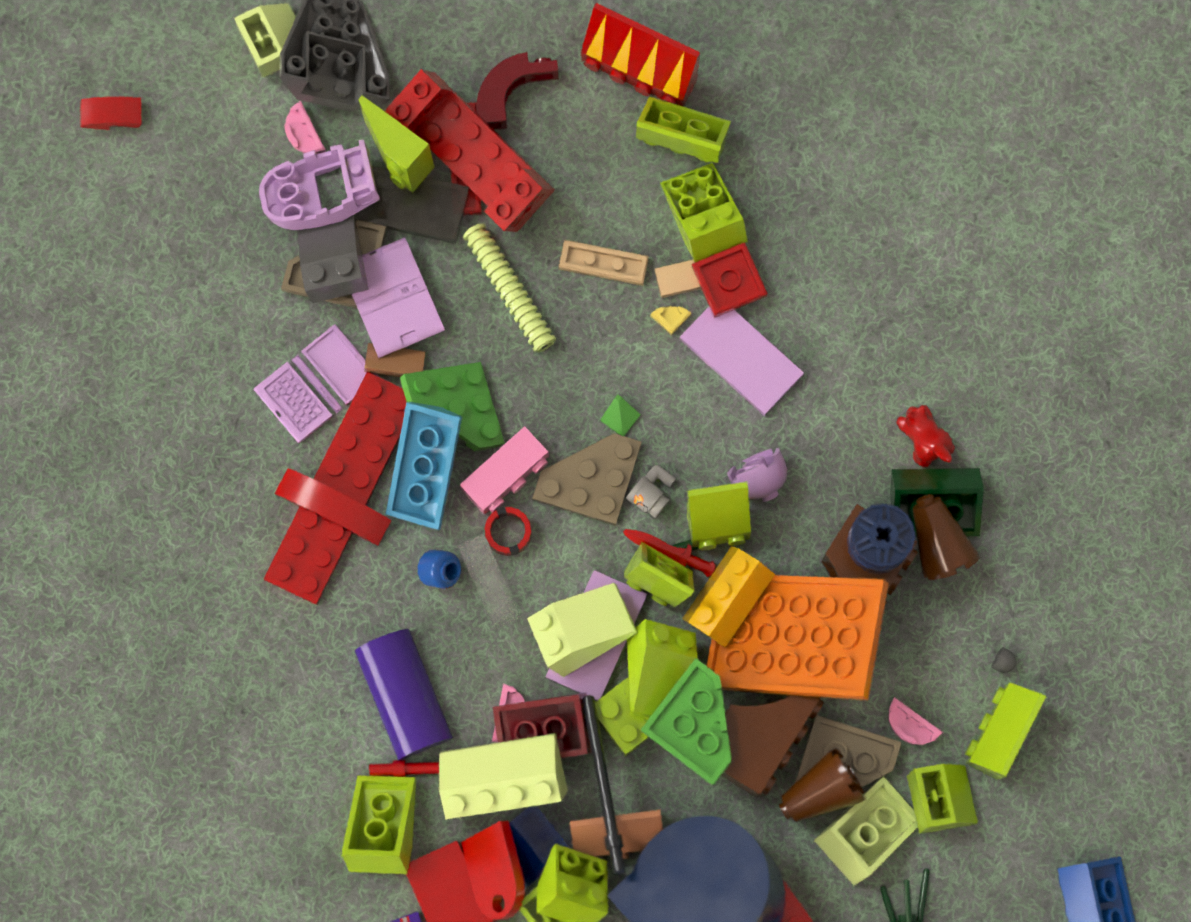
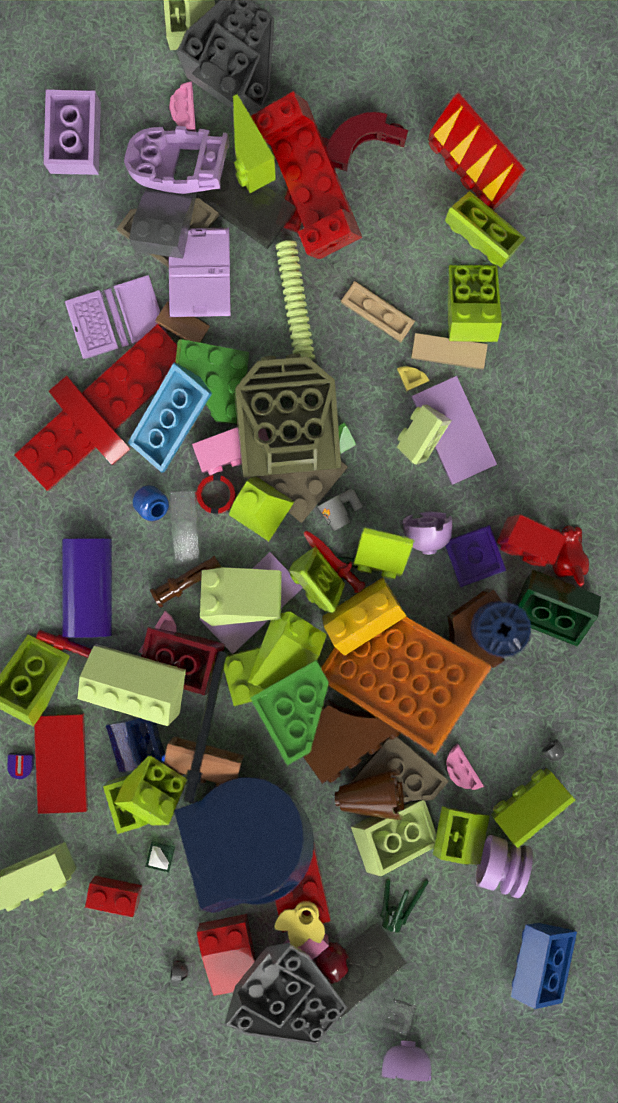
camera: 20 degrees right, 10 degrees up
(110, 111) = (38, 28): red slope -> none
(192, 205) = (72, 132): none -> lavender brick
(495, 871) = (99, 753): red tile -> none
(504, 651) = (176, 585): none -> reddish brown pin
(544, 369) = (292, 379): none -> olive hinge
(563, 525) = (260, 507): none -> lime slope
(708, 371) = (423, 434): none -> yellowish green slope
(729, 280) = (470, 366): red tile -> none
(823, 482) = (475, 556): none -> dark purple tile
(874, 436) = (531, 540): none -> red brick
(941, 539) = (547, 643): reddish brown cone -> none
(1006, 809) = (505, 866): none -> lavender wheel

